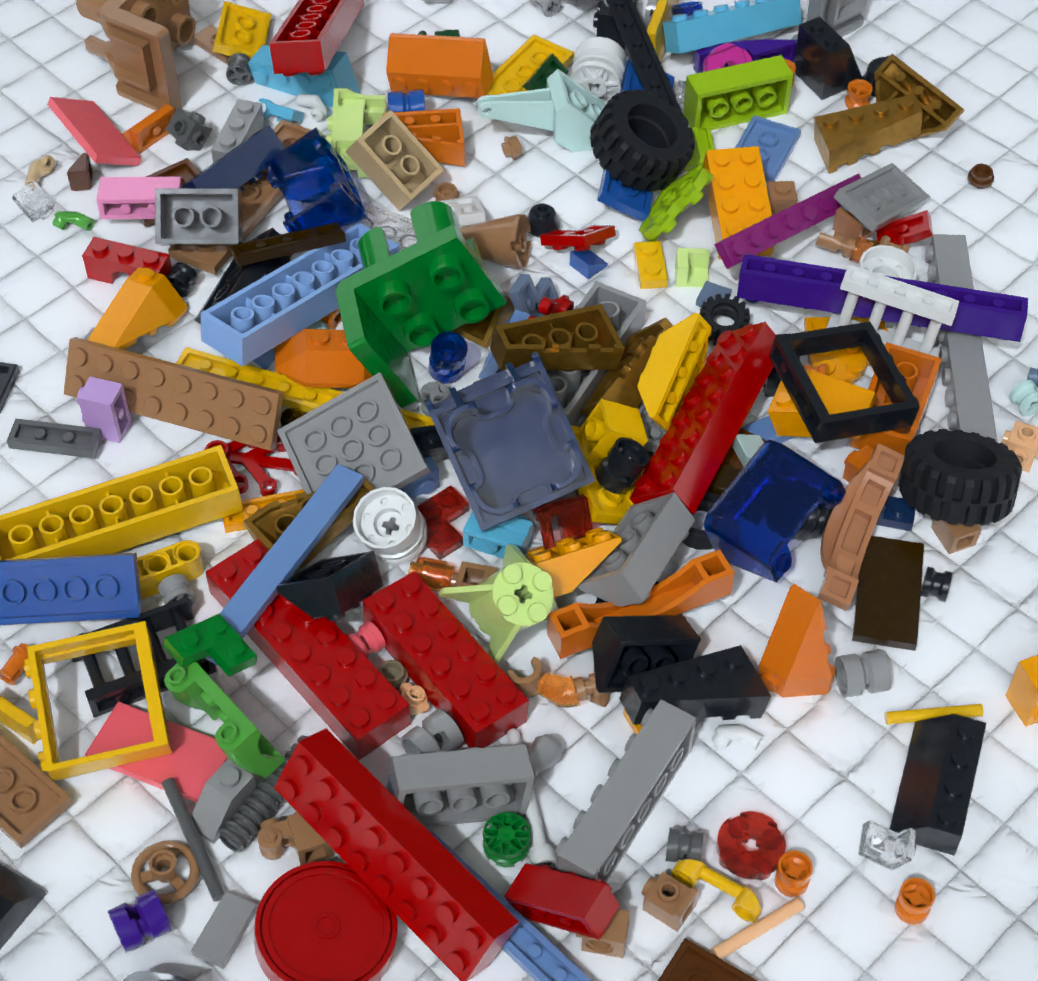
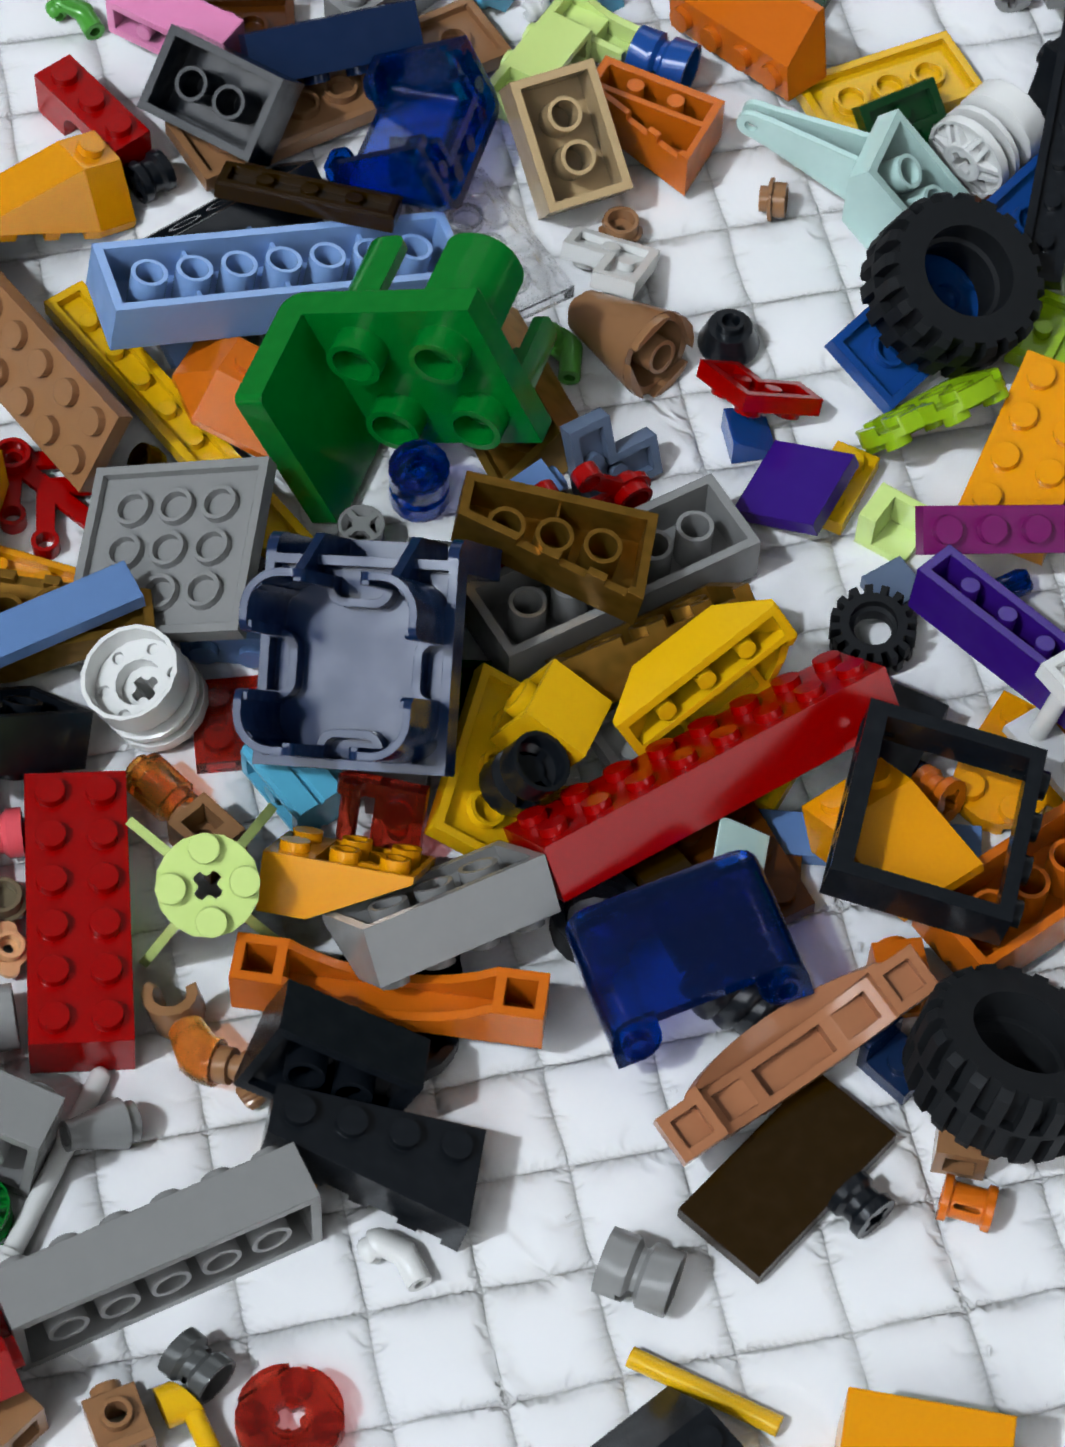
camera: 30 degrees right, 5 degrees up
(636, 269) = (796, 487): none -> dark purple tile
(796, 652) = (542, 1187): orange wedge -> none
(982, 556) = (967, 1203): none -> orange bush

